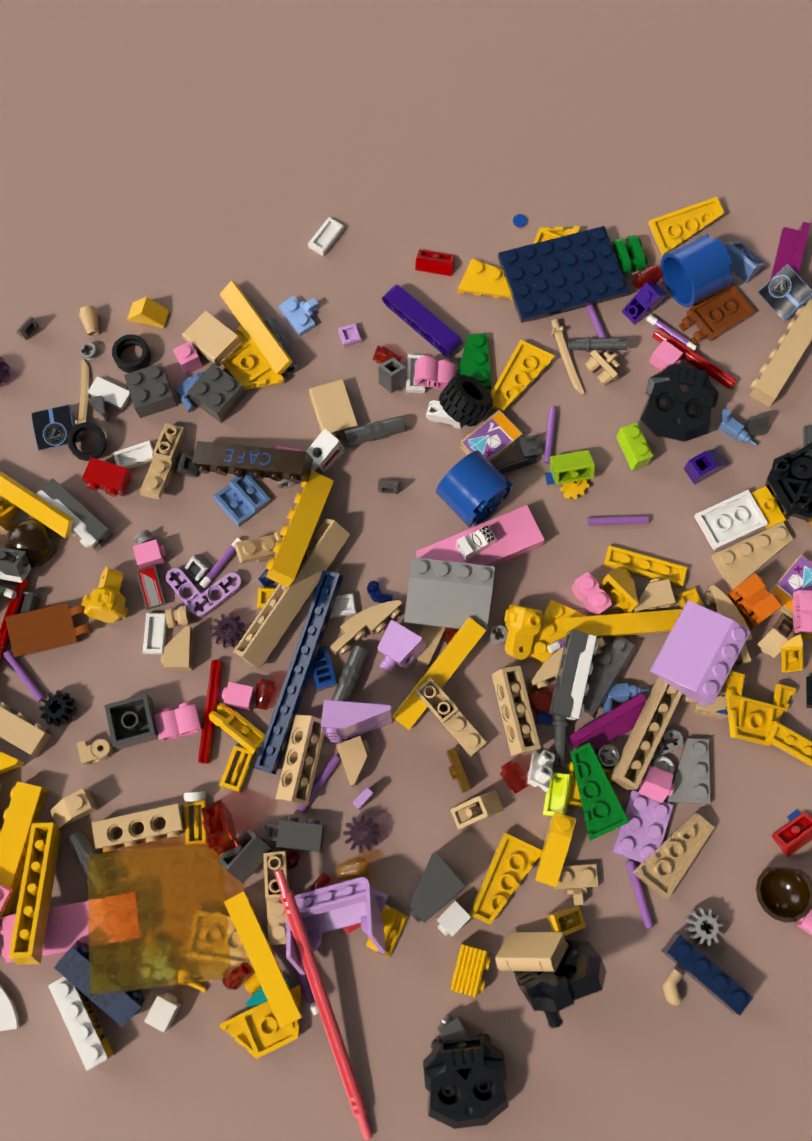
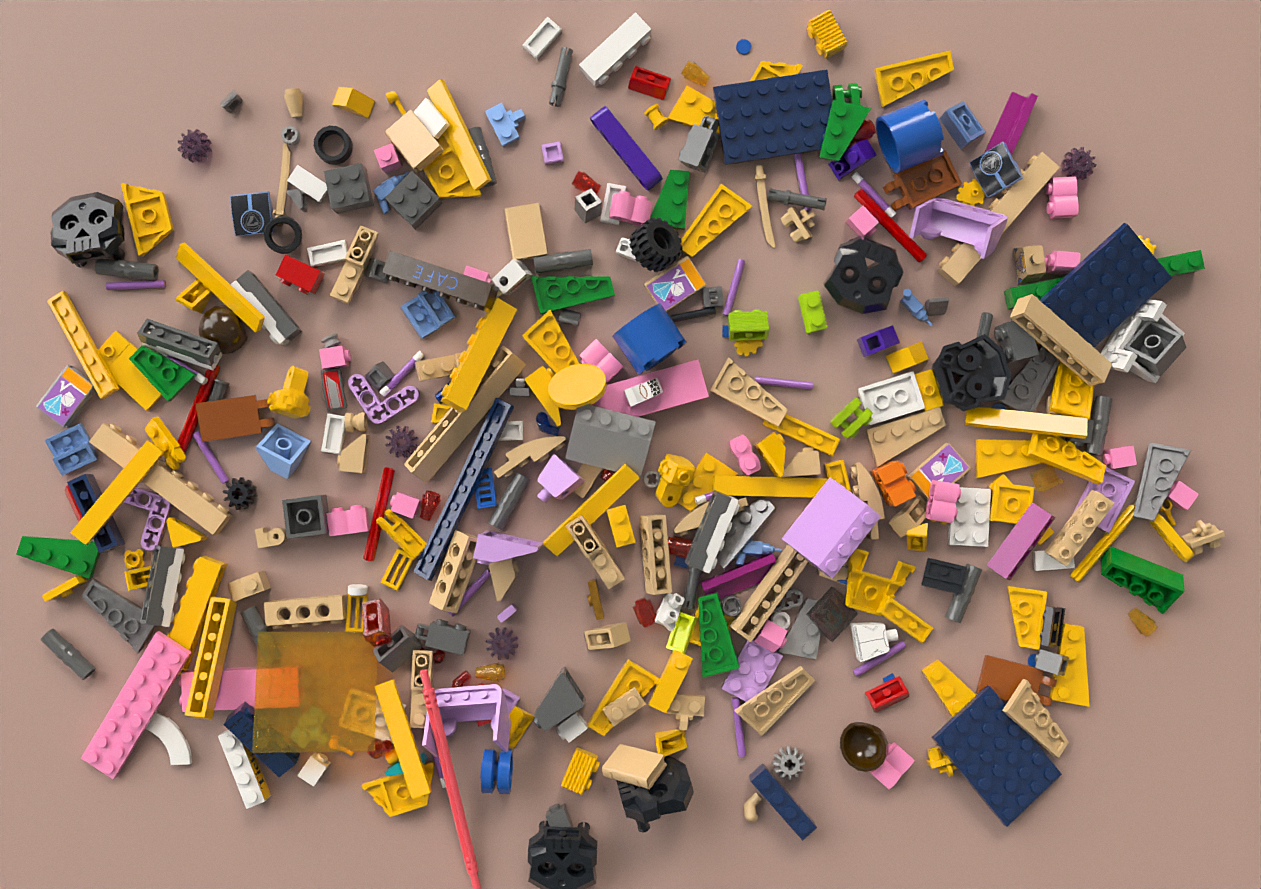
camera: 10 degrees right, 15 degrees up
(101, 657) = (282, 450): none -> light blue slope
(186, 304) = (393, 97): none -> yellow hand
(227, 316) = (431, 118): none -> white tile
(347, 562) = (520, 390): none -> flat silver tile
(348, 273) = (560, 78): none -> dark grey pin
(371, 556) = (539, 382): none -> yellow slope
(374, 983) = (496, 771): none -> blue wheel
(377, 516) = (550, 343): none -> yellow wing
(379, 461) = (564, 292): none -> green wing
(398, 236) = (615, 50): none -> white brick
(407, 543) = (577, 386): none -> yellow tile
(426, 522) = (600, 357): none -> bright pink brick
(446, 289) = (656, 116): none -> yellow bush
(473, 686) = (621, 525): none -> yellow brick
(478, 247) = (695, 74): none -> clear yellow cone
(494, 307) = (700, 144): none -> brick
(508, 886) = (624, 706): none -> tan plate
(576, 532) = (741, 390): none -> tan wing
(597, 198) = (826, 34): none -> yellow brick
(628, 273) = (841, 128): none -> green wing
(707, 540) = (852, 429): none -> lime brick
(717, 750) = (831, 614): none -> clear smoke tile
(737, 478) = (907, 357): none -> yellow slope
(763, 343) = (959, 223): none -> lavender windscreen
(765, 772) = (871, 639): none -> white torso
(766, 319) = (971, 193): none -> yellow piece
(779, 794) = (878, 659): none -> medium lavender bar

